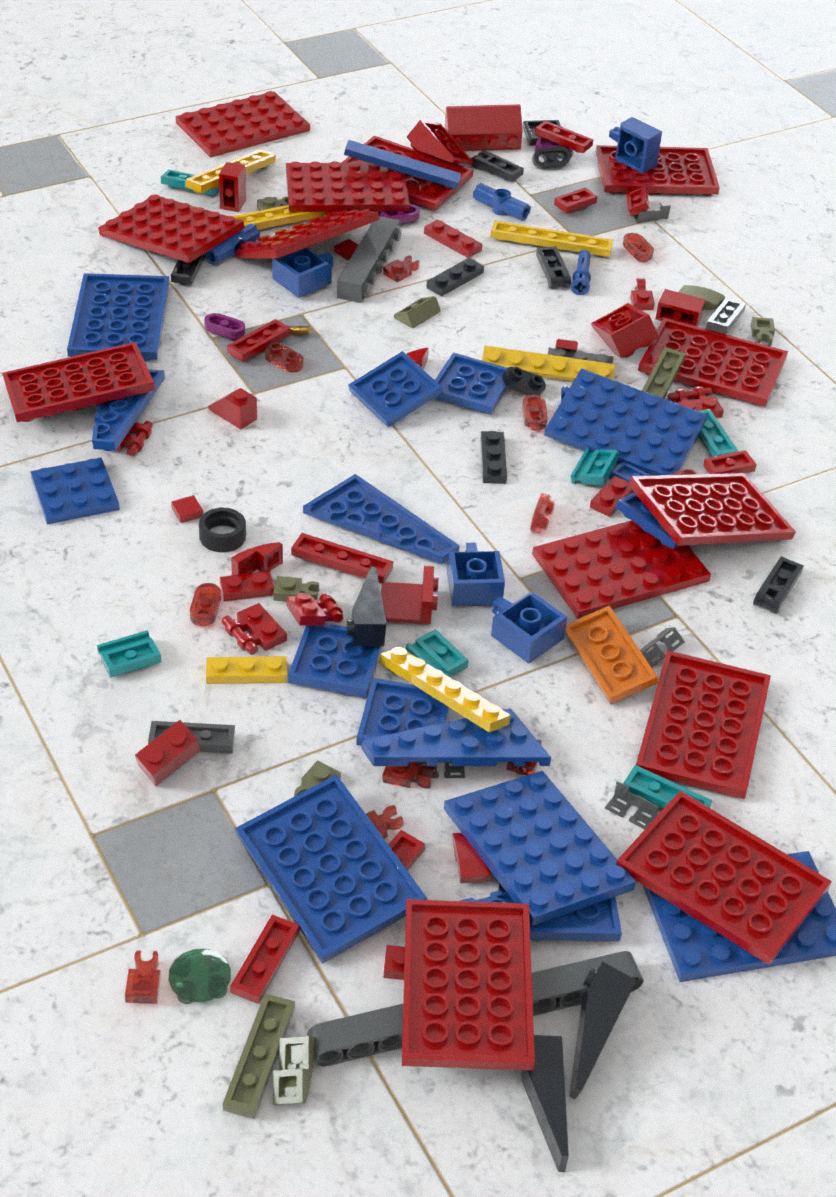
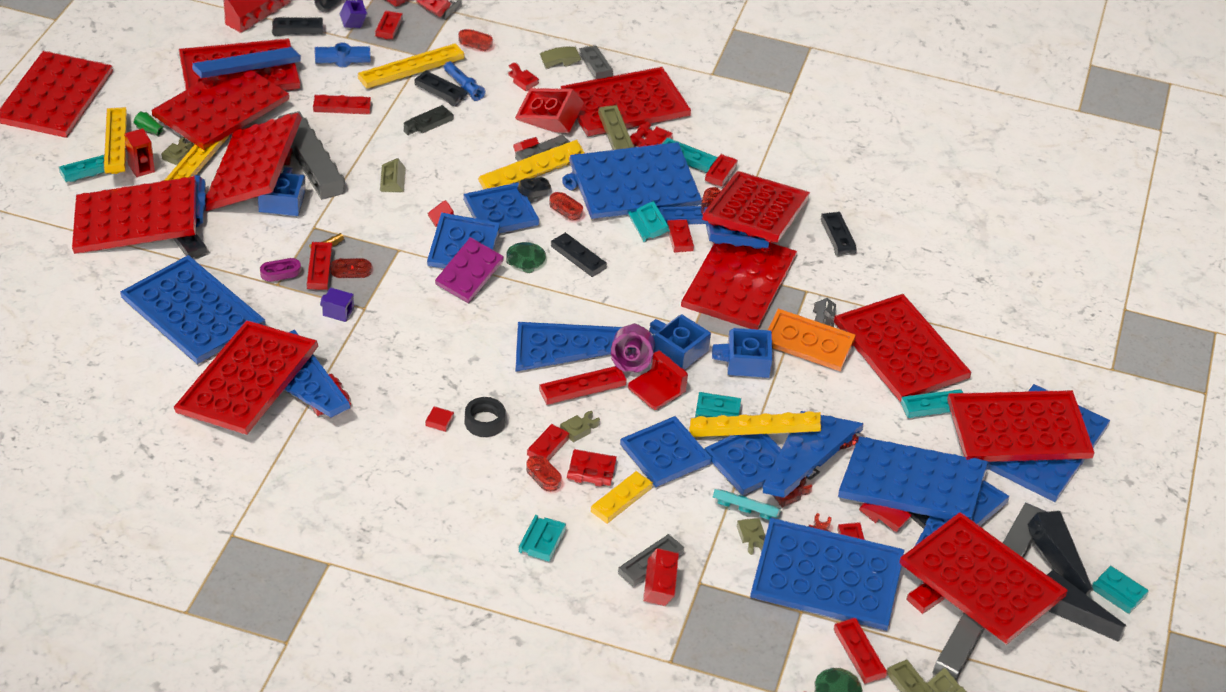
camera: 45 degrees left, 0 degrees up
(74, 490) = (346, 457): blue plate -> none
(229, 375) = (337, 304): none -> dark purple brick
(236, 408) = (373, 325): red slope -> none
(261, 557) = (536, 421): red slope -> none
(276, 173) = (148, 123): none -> green cone
(314, 612) = (615, 429): red plate -> none
(345, 752) = (746, 504): none -> plate
(368, 616) = (655, 407): slope -> none
(371, 411) = (469, 270): none -> magenta plate
(399, 269) = (338, 150): clear red plate -> none
(403, 216) = (286, 107): magenta plate -> none
(413, 549) = (632, 359): none -> magenta brick
(436, 141) = (242, 31): red slope -> none
(443, 431) = (525, 256): none -> clear green dish
(455, 277) = (383, 134): black plate -> none
(508, 286) = (428, 120): none -> pearl dark grey hinge
(540, 517) = (659, 274): clear red plate -> none
(550, 175) = (353, 13): none -> dark purple brick
(622, 792) = (916, 418): dark grey piece -> none
(630, 1121) = (1120, 589): none -> teal plate
(680, 307) = (561, 72): red brick -> none
(763, 329) = (625, 57): olive plate -> none

